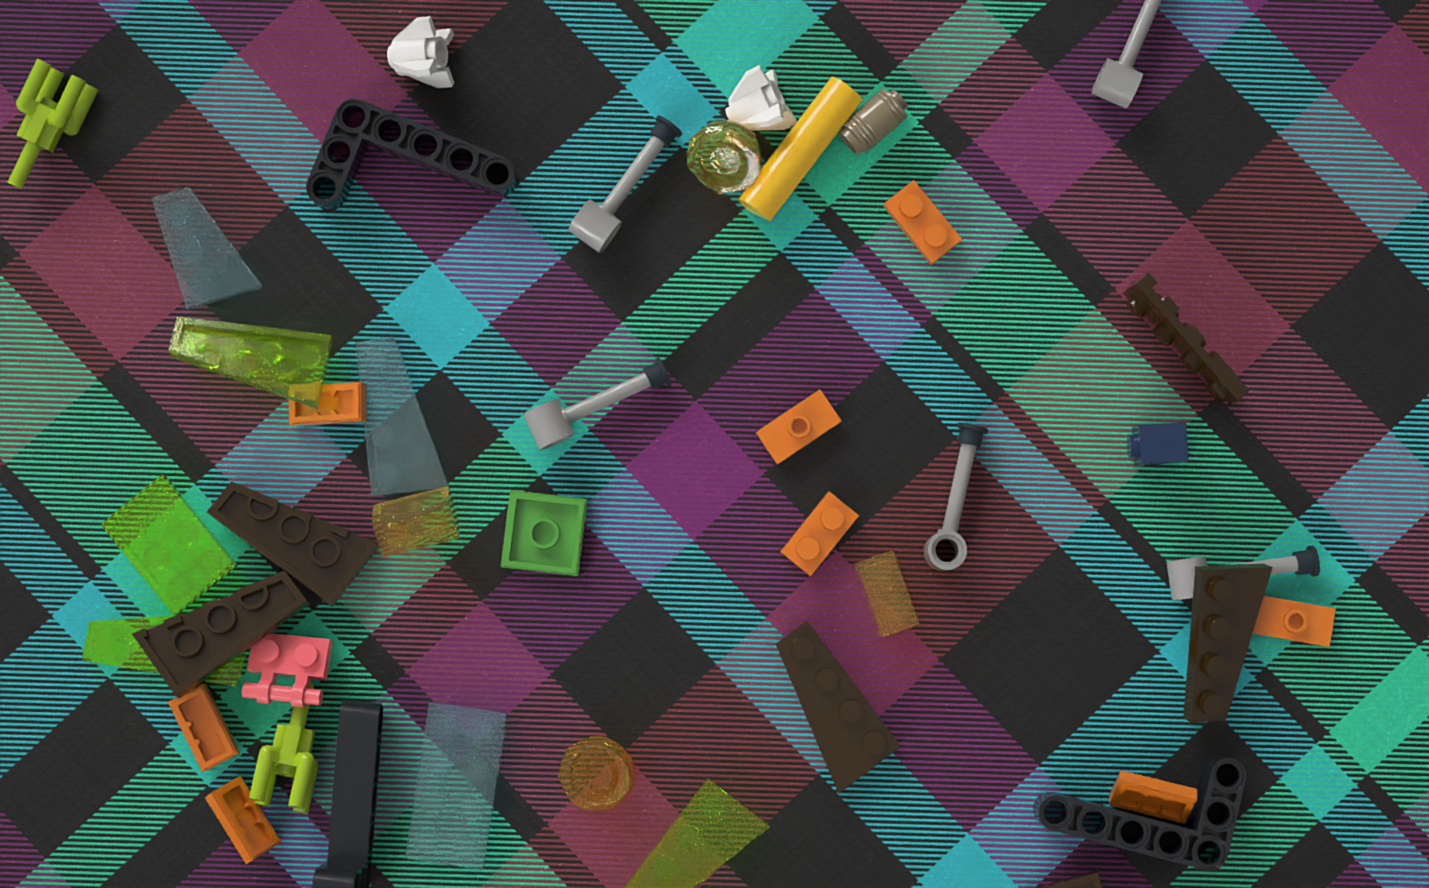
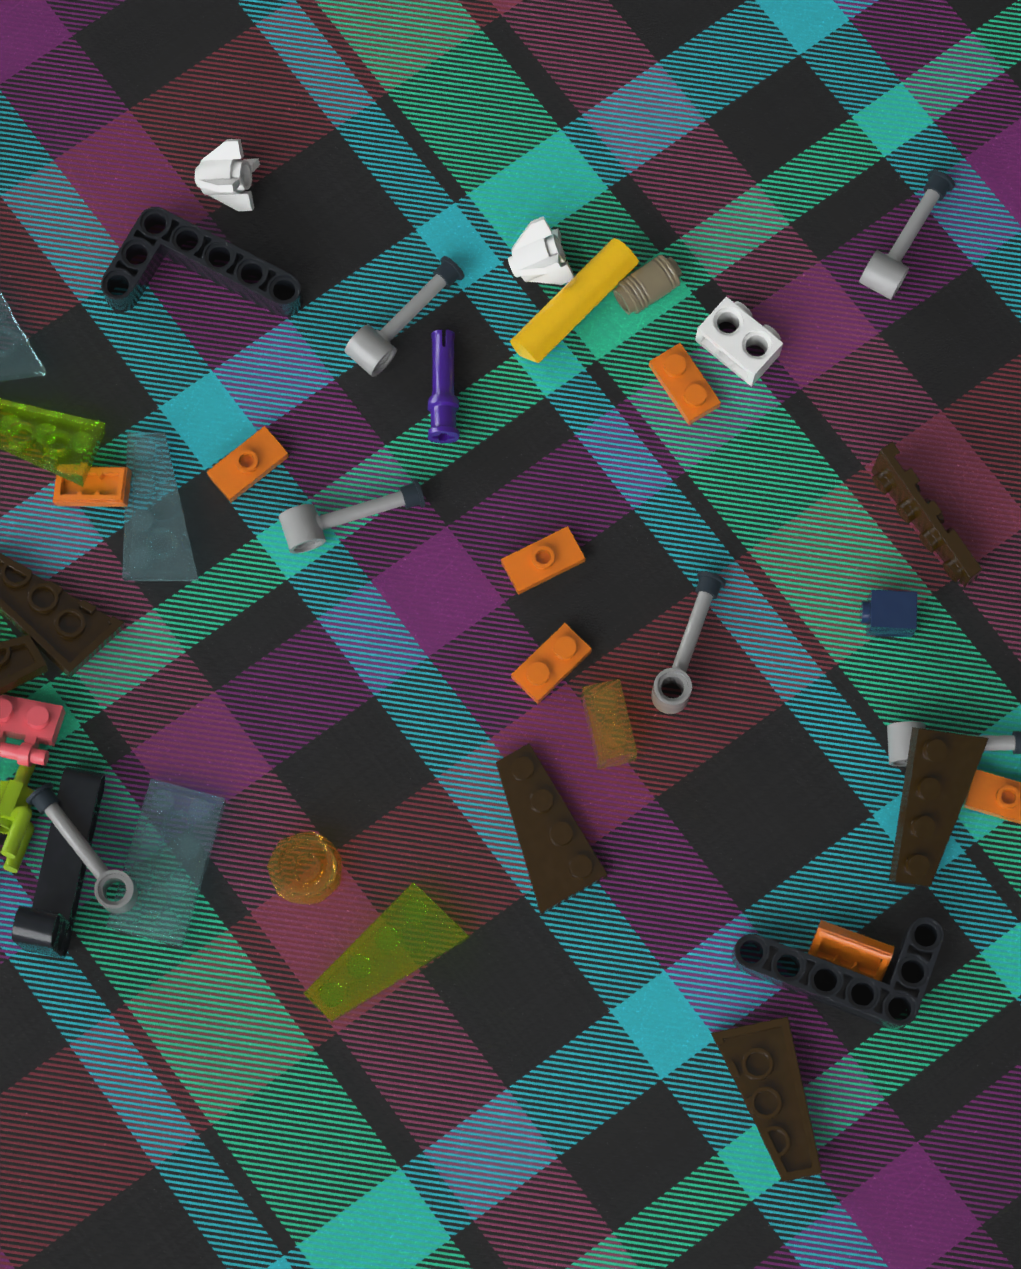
camera: 10 degrees right, 10 degrees down
(327, 746) = (47, 803): none -> light grey piece
(415, 521) = (161, 603): clear yellow brick -> none
(483, 360) = (247, 464): none -> orange plate
(544, 533) = (284, 632): bright green tile -> none
(676, 272) = (443, 402): none -> dark purple pin
(725, 156) = (501, 299): clear yellow hat -> none
(969, 180) = (731, 347): none -> white brick

